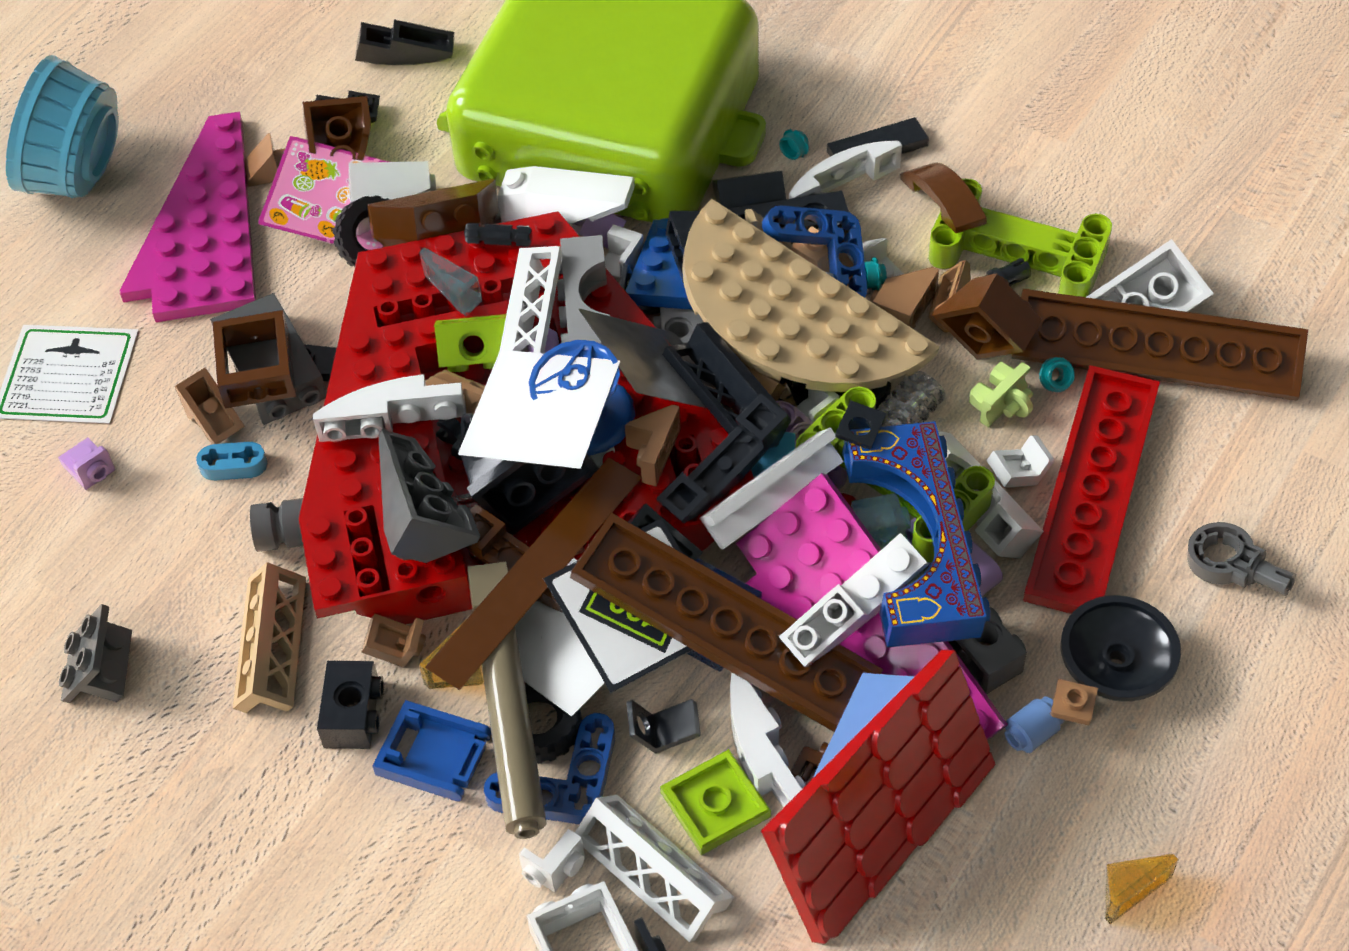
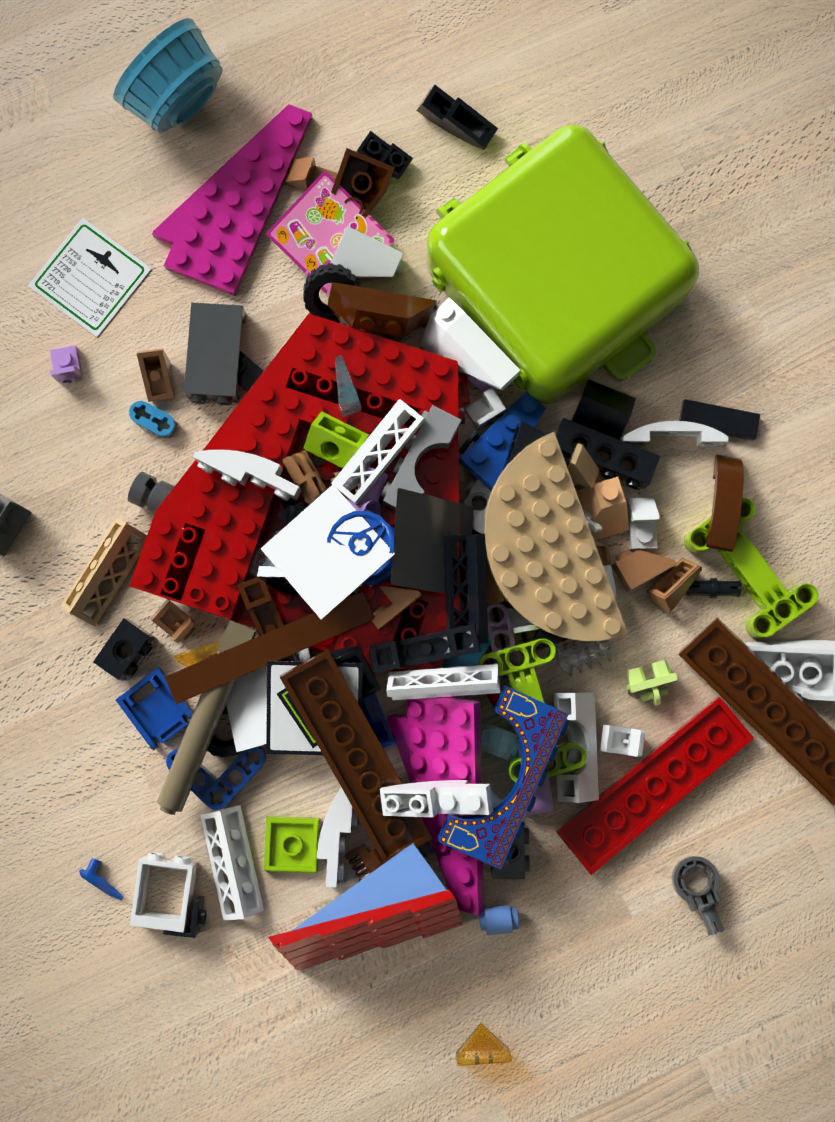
camera: 30 degrees right, 30 degrees up
(274, 381) = (187, 386): reddish brown window -> none
(417, 507) = (224, 562): dark grey wedge -> none
(498, 234) = (402, 363): black axle -> none
(562, 861) = (184, 831): white bracket -> none
(665, 727) = (292, 781): black bracket -> none
(794, 144) = (662, 385): teal plate -> none
(828, 234) = (620, 498): blue beam -> none
(860, 417) = (526, 681): black bracket -> none
(875, 274) = (632, 539): teal plate -> none
(989, 318) = (677, 633): reddish brown slope -> none
(1065, 377) = (695, 688): teal plate -> none
(1074, 702) = (527, 928): medium nougat bracket -> none
(1123, 631) = (585, 929): black dish -> none

